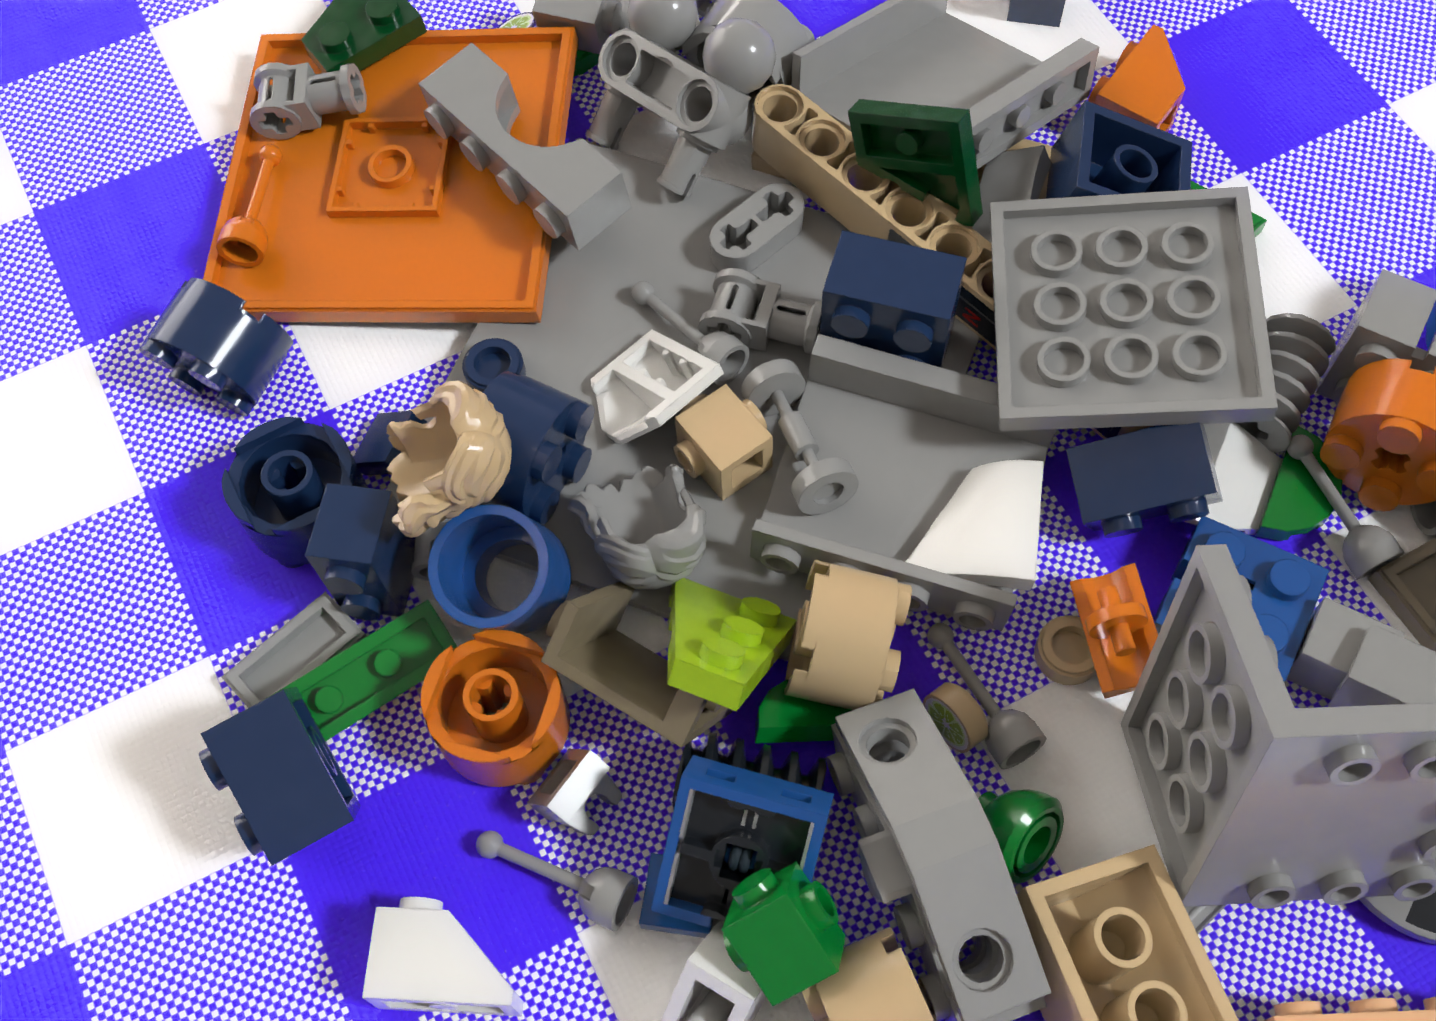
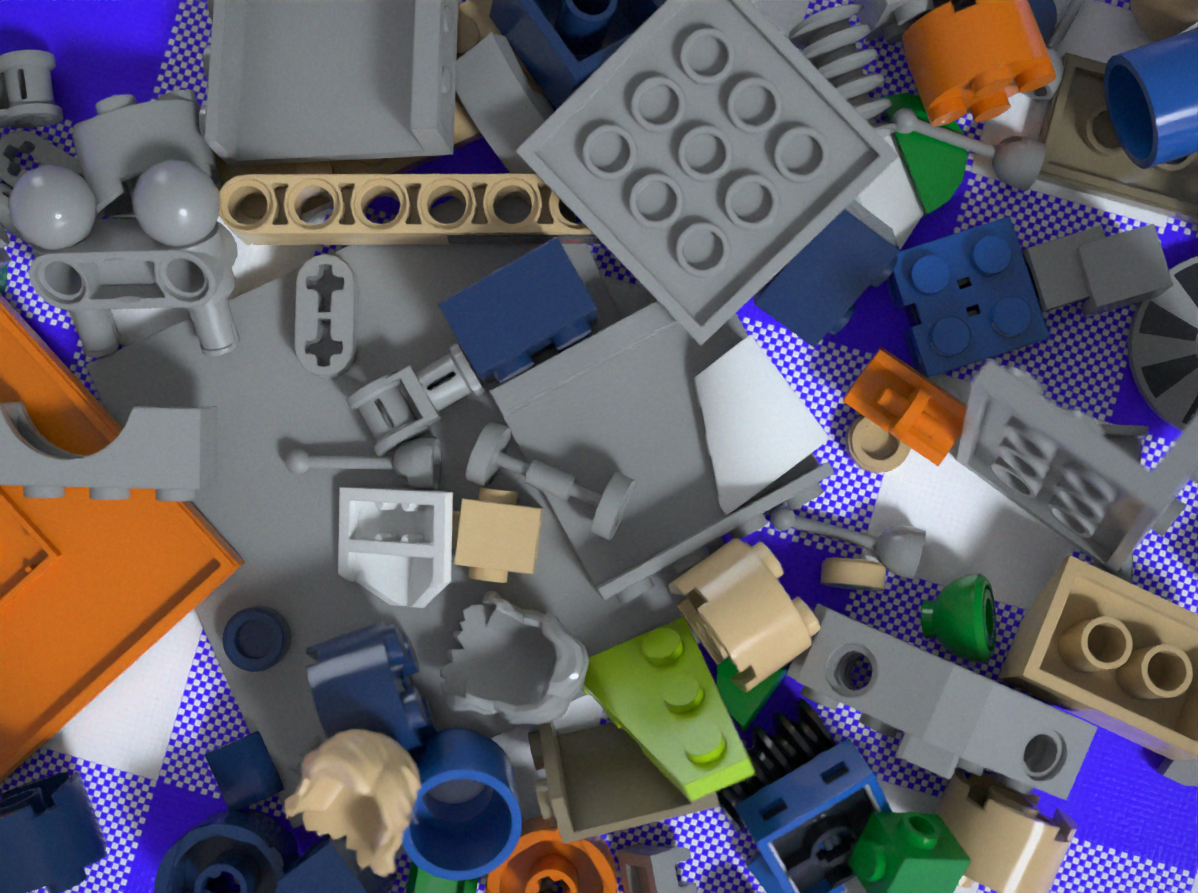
camera: 45 degrees left, 25 degrees up
(921, 151) = (416, 160): dark green wing -> none

